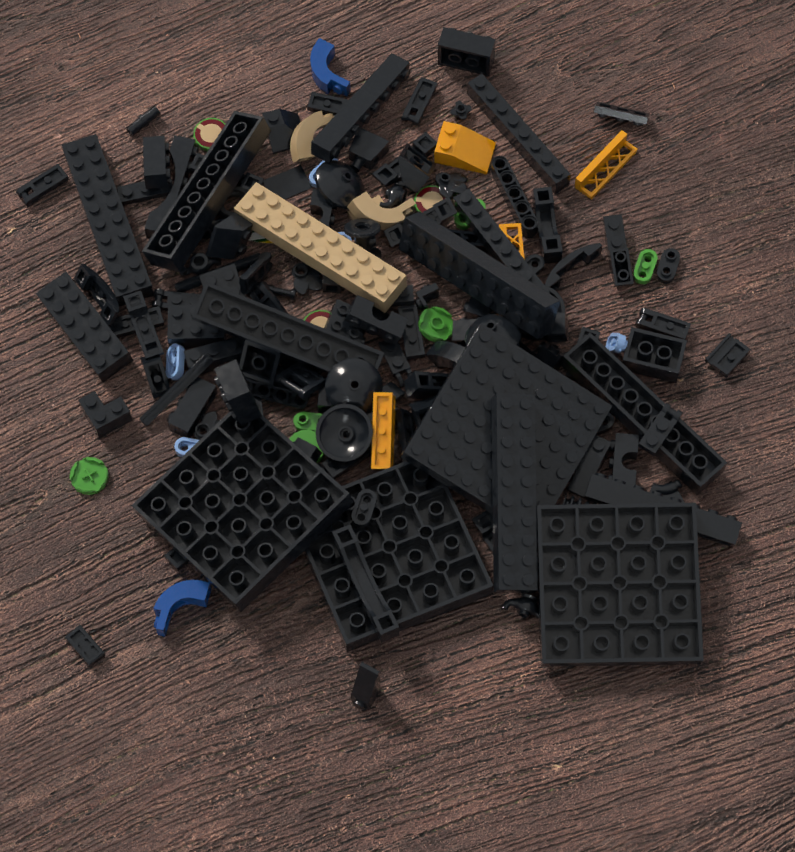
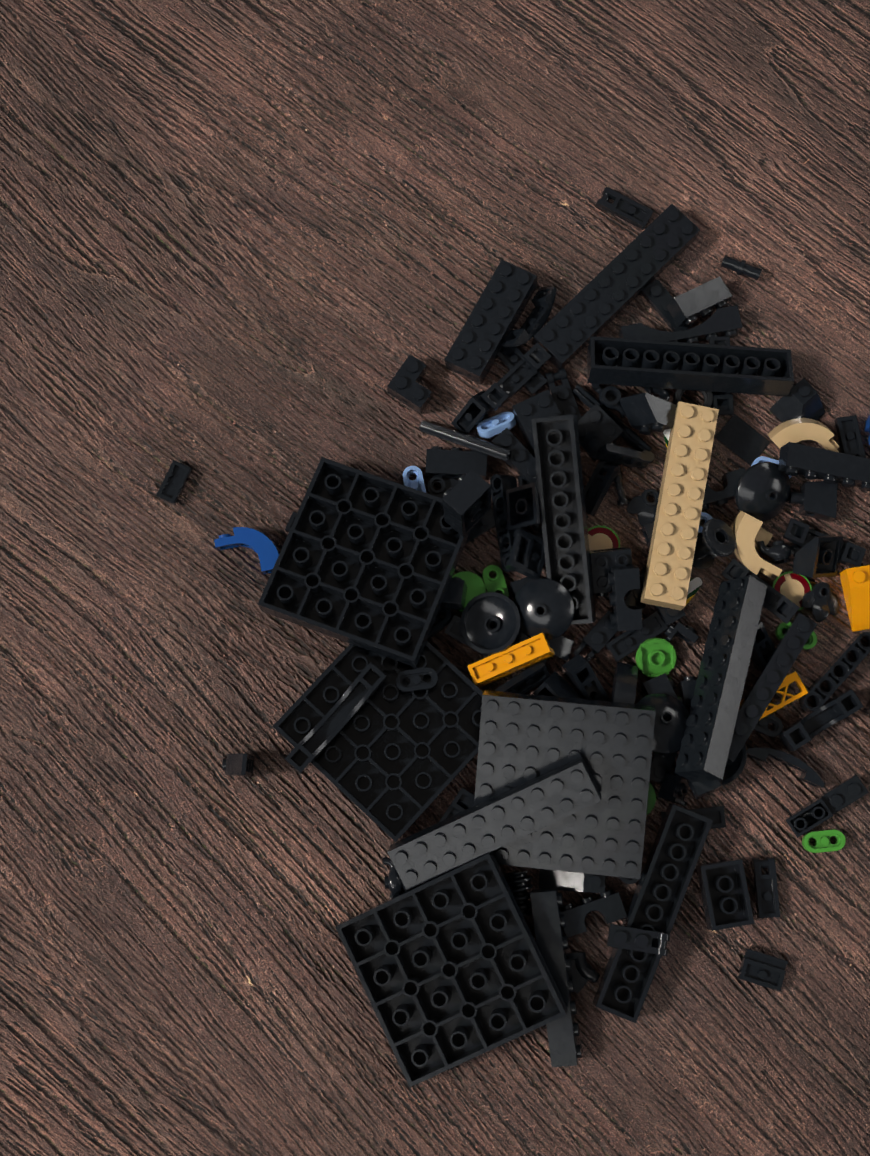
camera: 60 degrees right, 15 degrees up
(89, 475) = (345, 402): bright green tile -> none
(207, 132) = (760, 335): tile -> none
(616, 343) = (718, 849): light blue plate -> none
(668, 264) = (838, 864): black plate -> none

